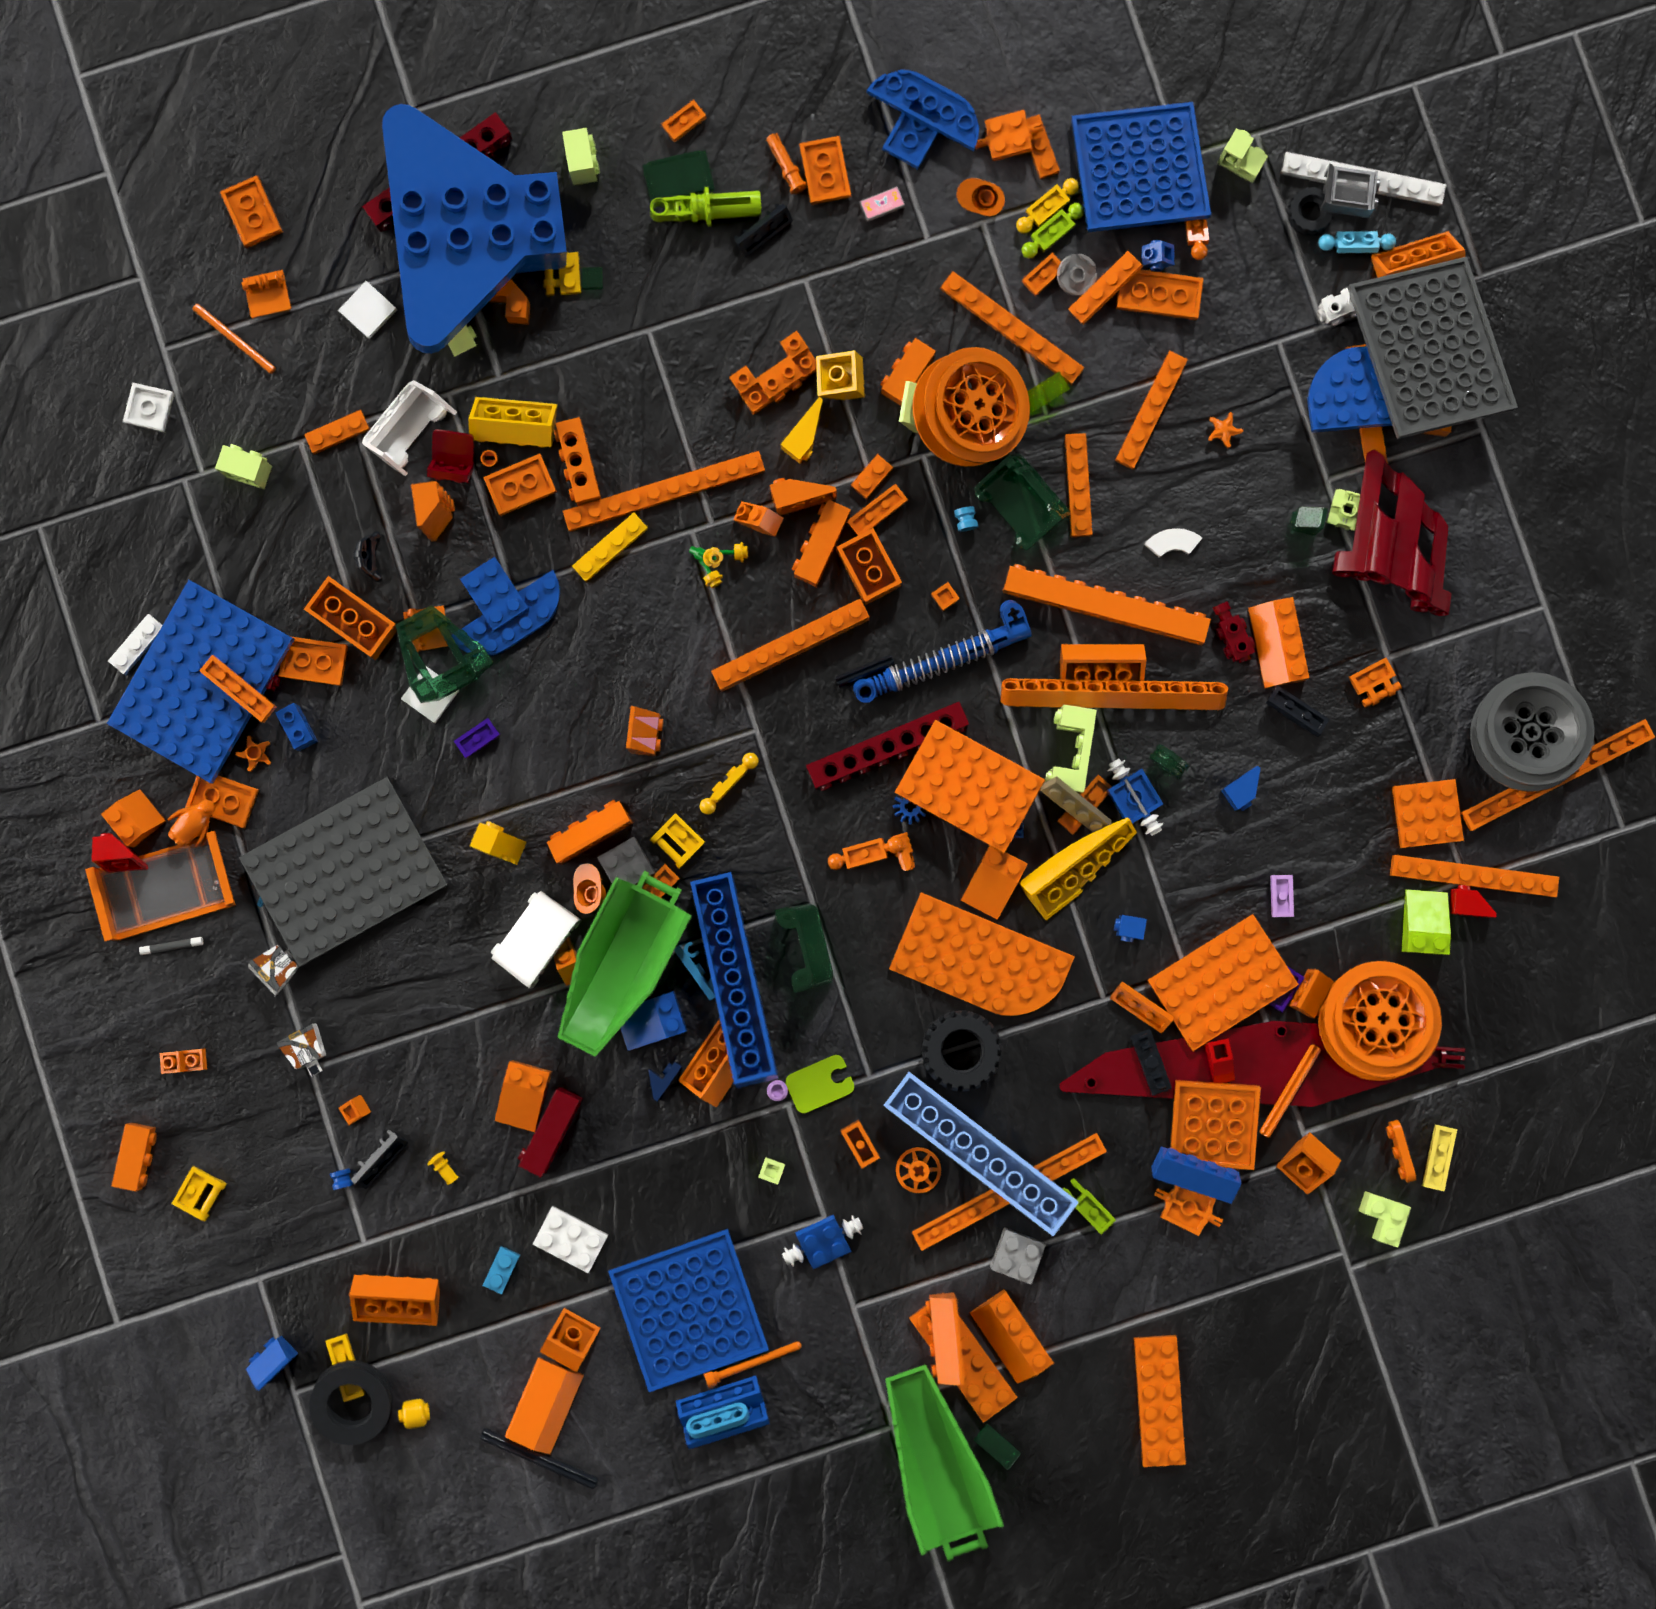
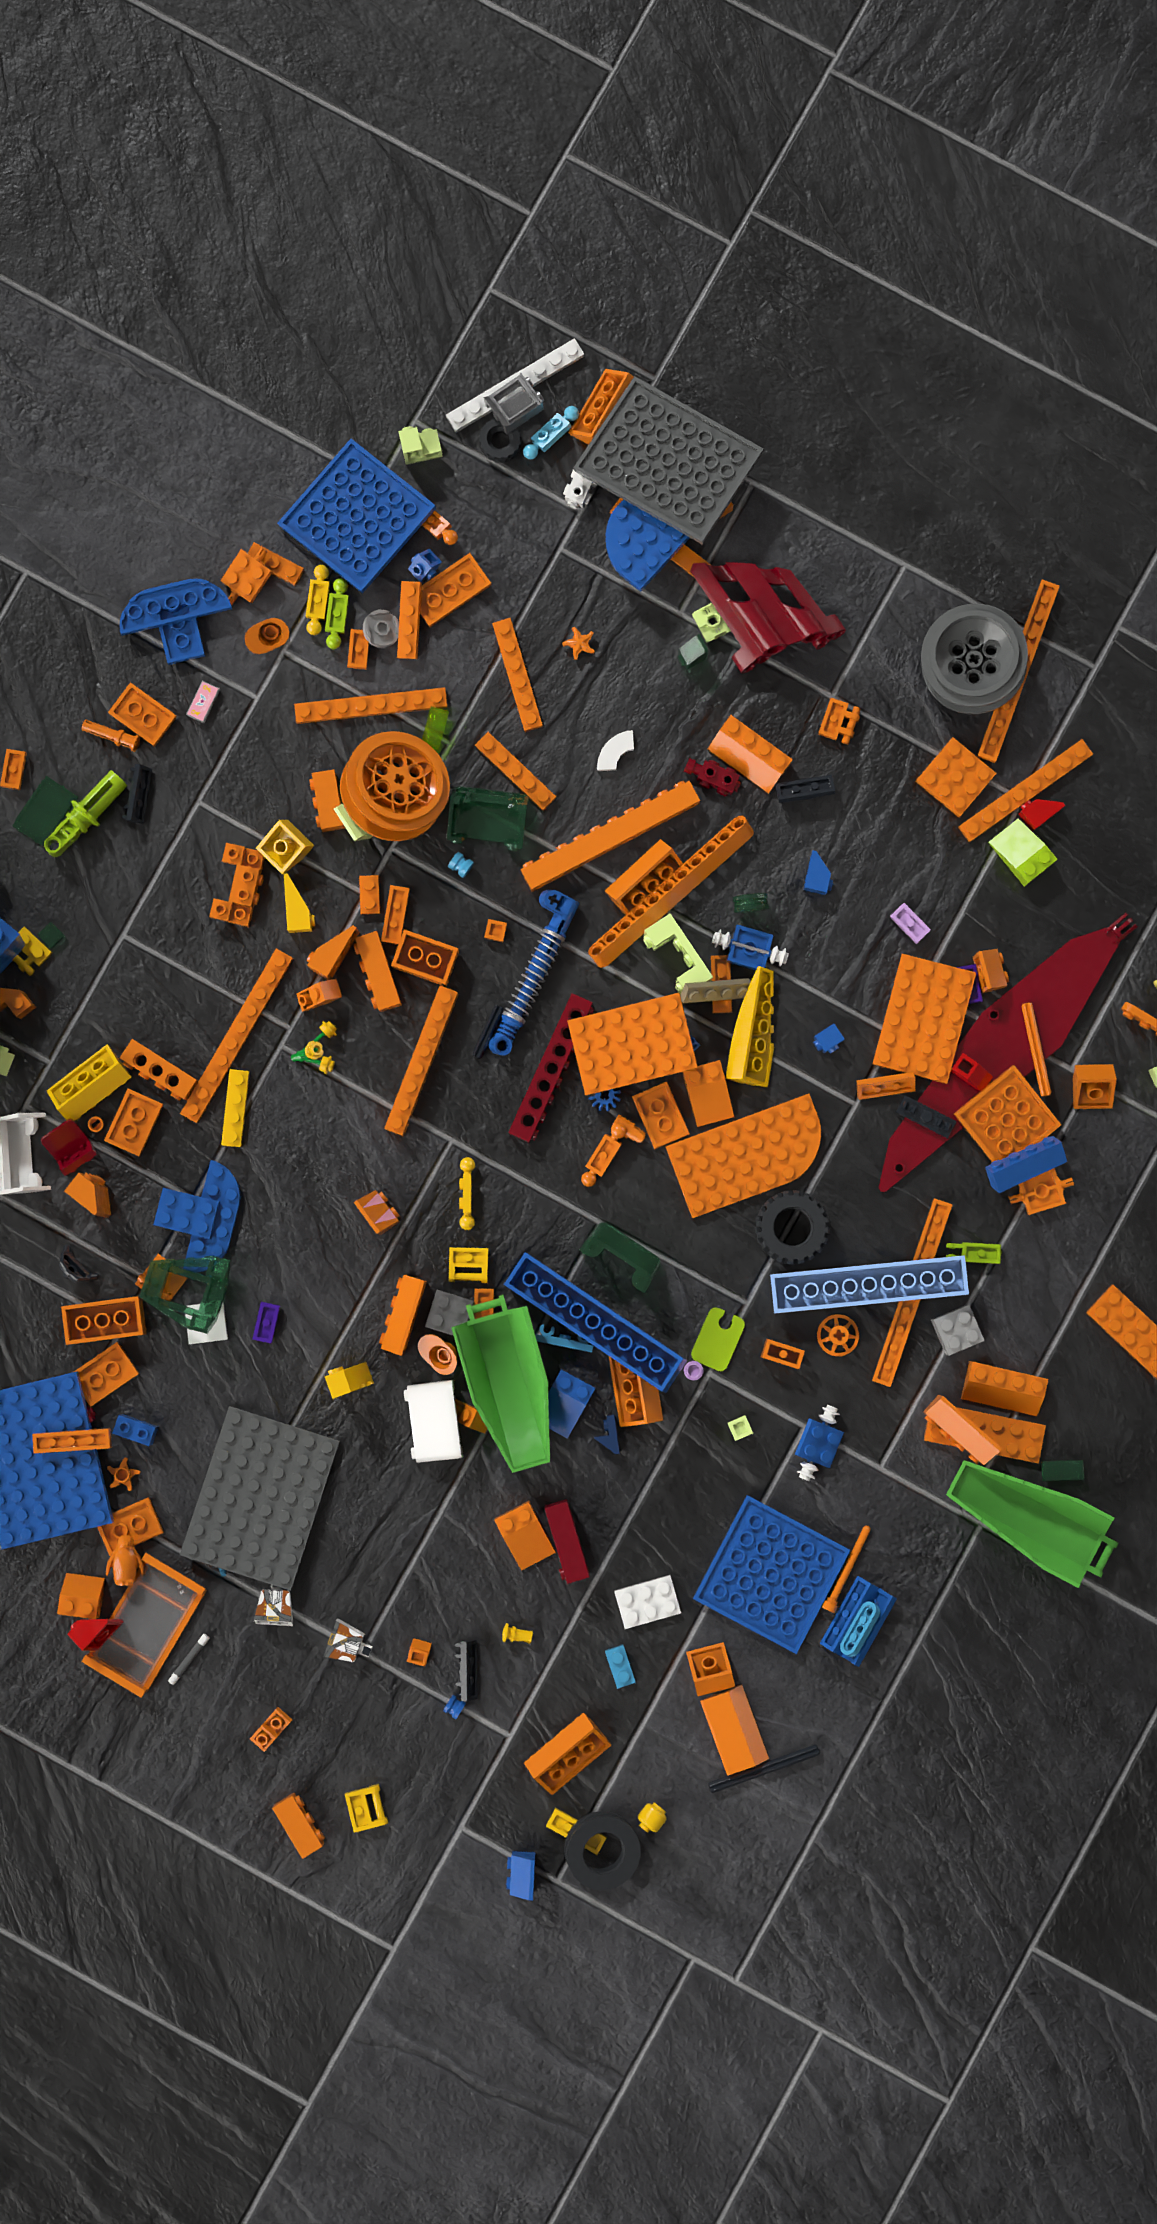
camera: 40 degrees left, 0 degrees up
(940, 864) = (660, 1115): none -> orange tile
(1346, 1037) = (1038, 978): orange wheel -> none

